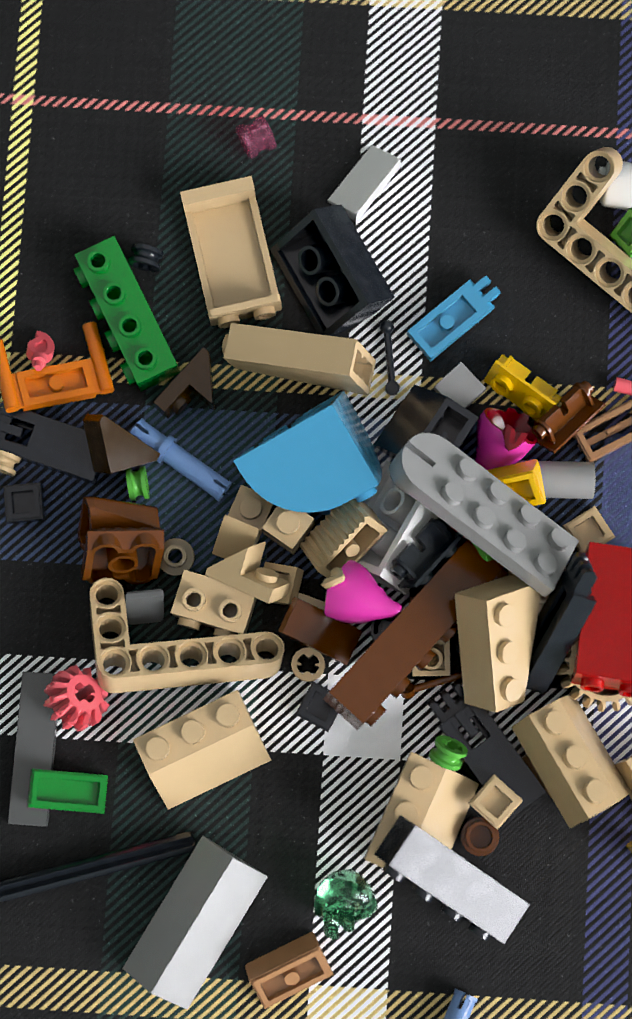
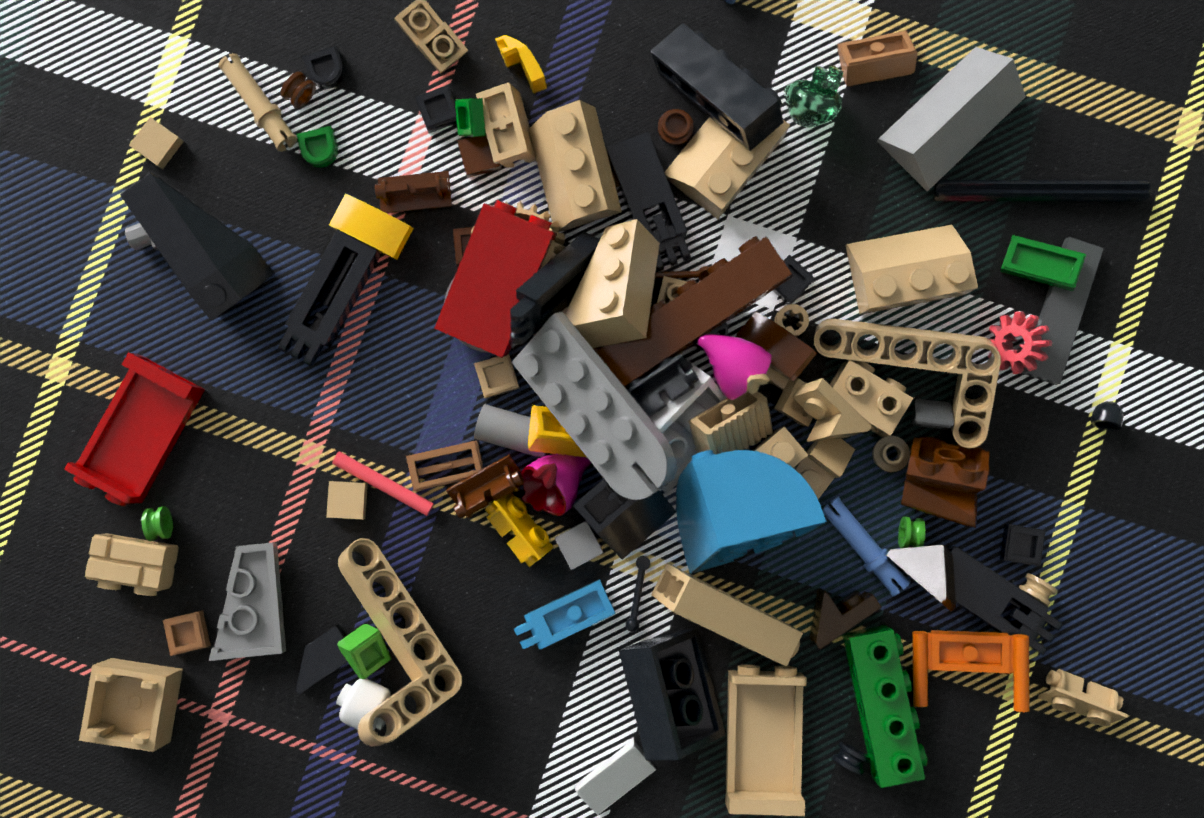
camera: 165 degrees left, 5 degrees up
(40, 350) = (977, 690): coral piece -> none
(448, 752) = (687, 201): bright green bush -> none
(495, 801) = (655, 148): tan tile -> none

